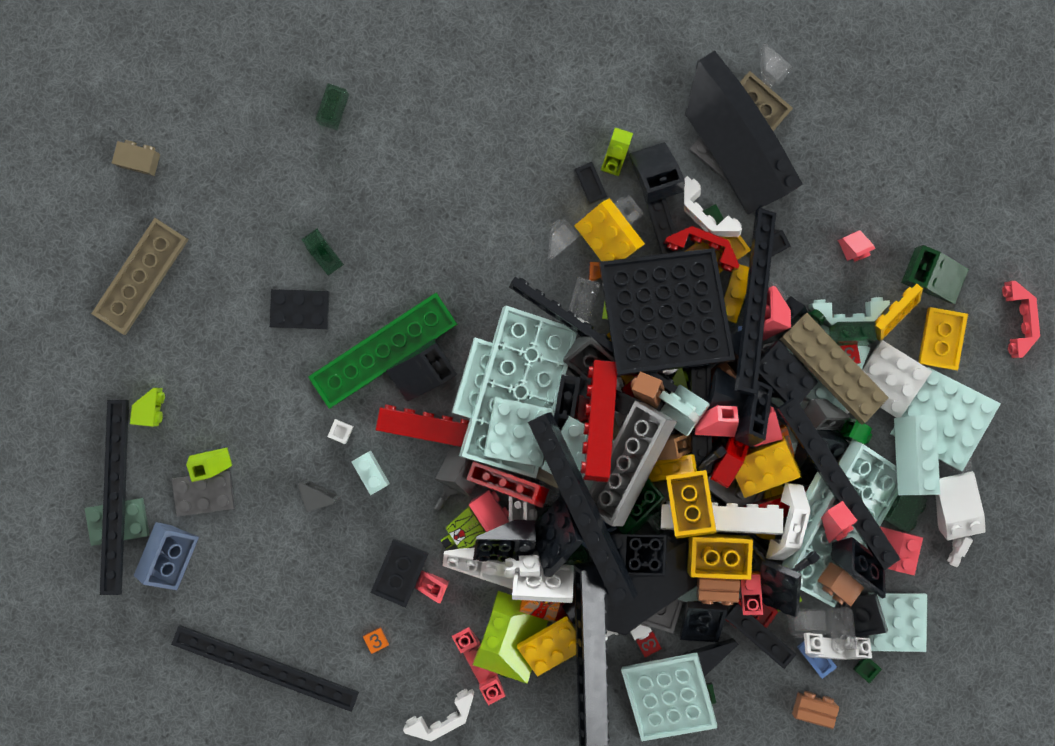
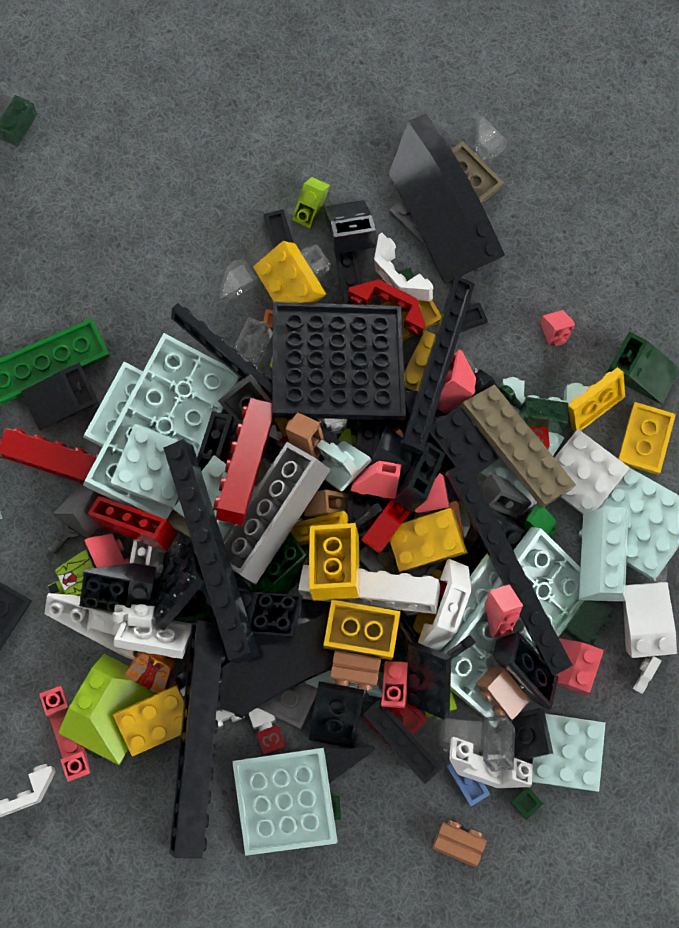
camera: 10 degrees right, 15 degrees down
(432, 586) = (29, 637): coral slope -> none

